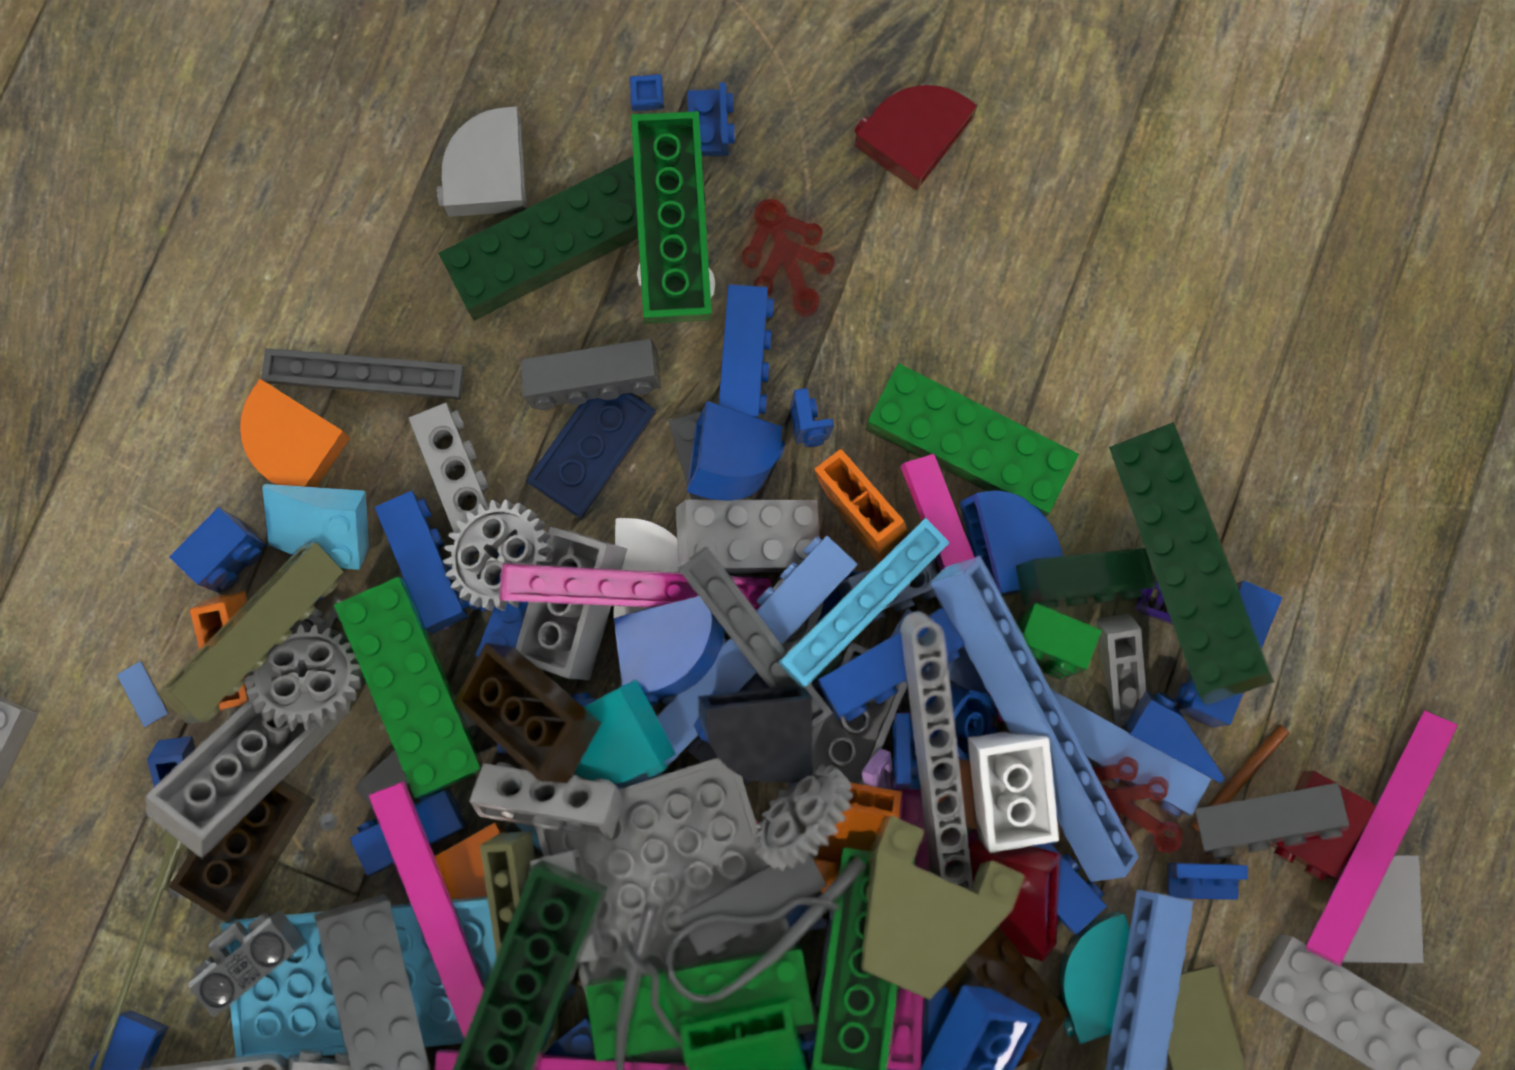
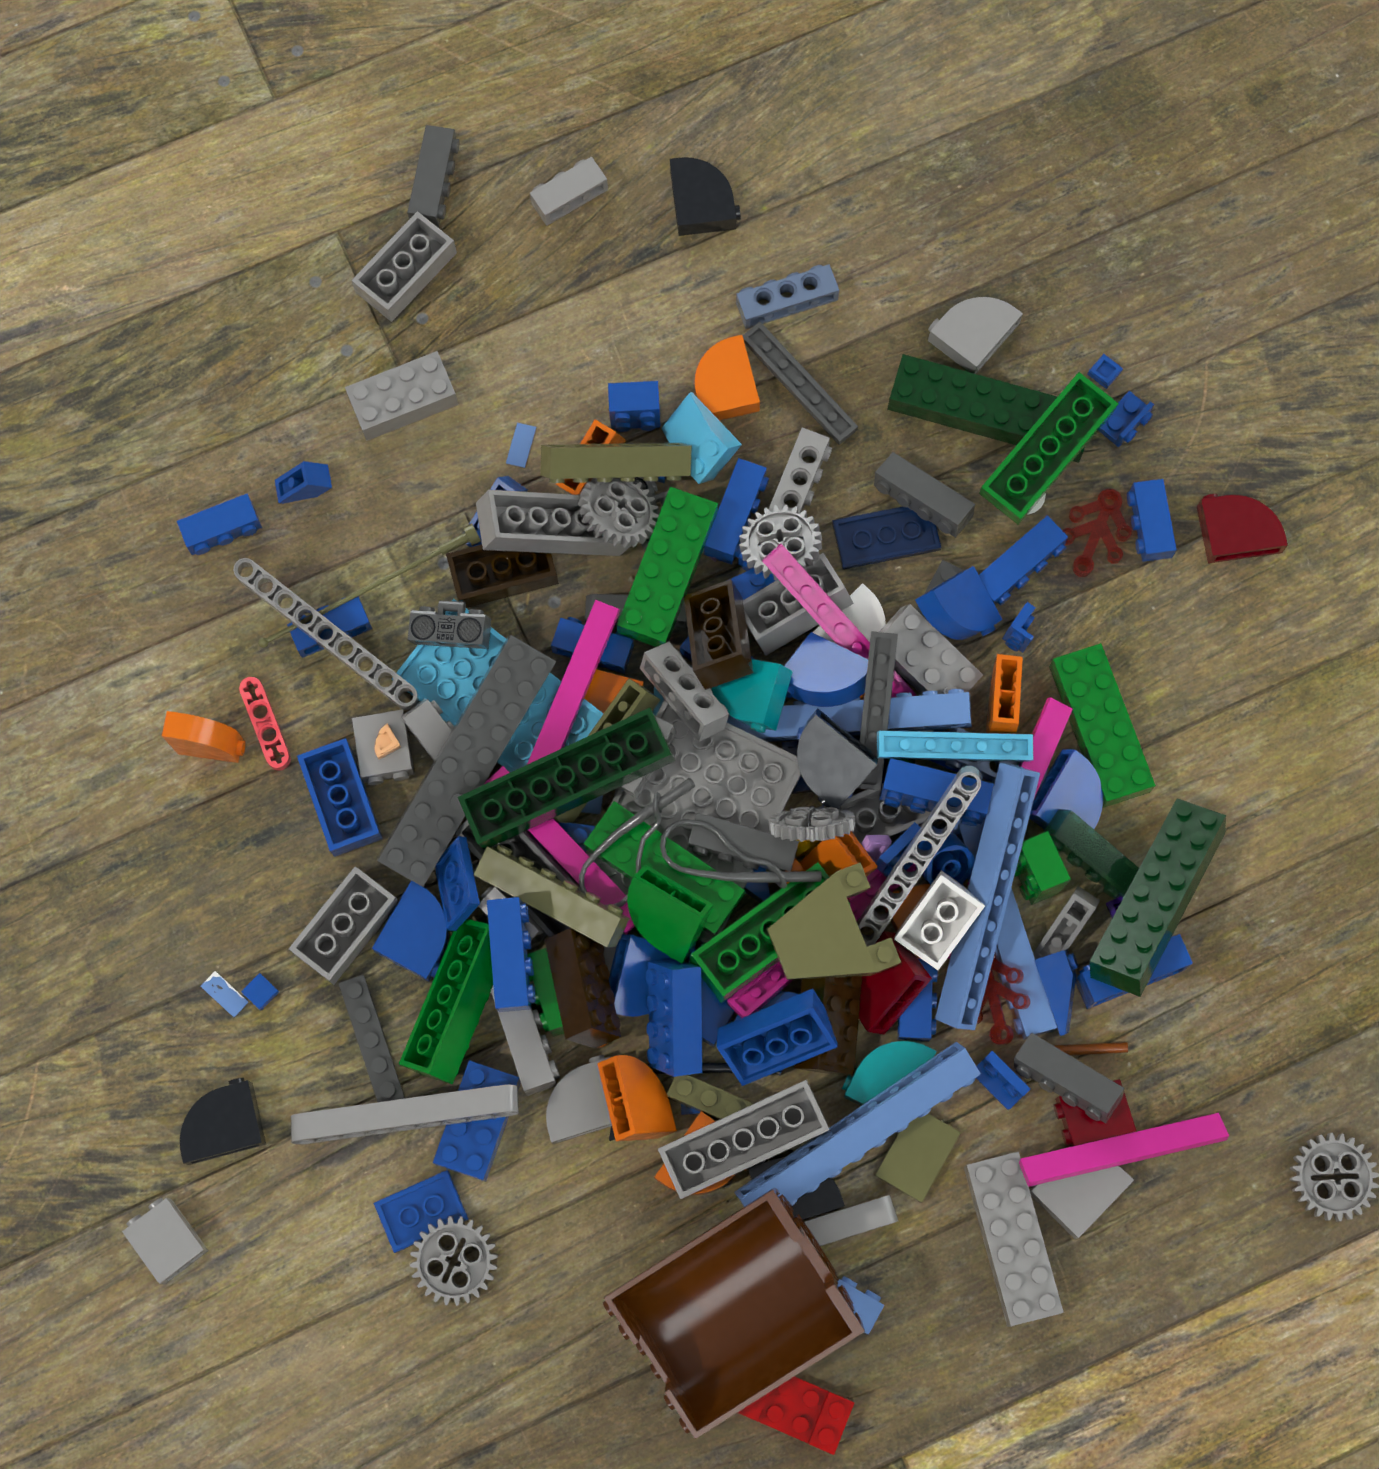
camera: 45 degrees right, 5 degrees down
(87, 276) = (702, 197): none -> black brick
(271, 315) = (819, 276): none -> sand blue brick
(828, 197) = (1151, 520): none -> blue brick

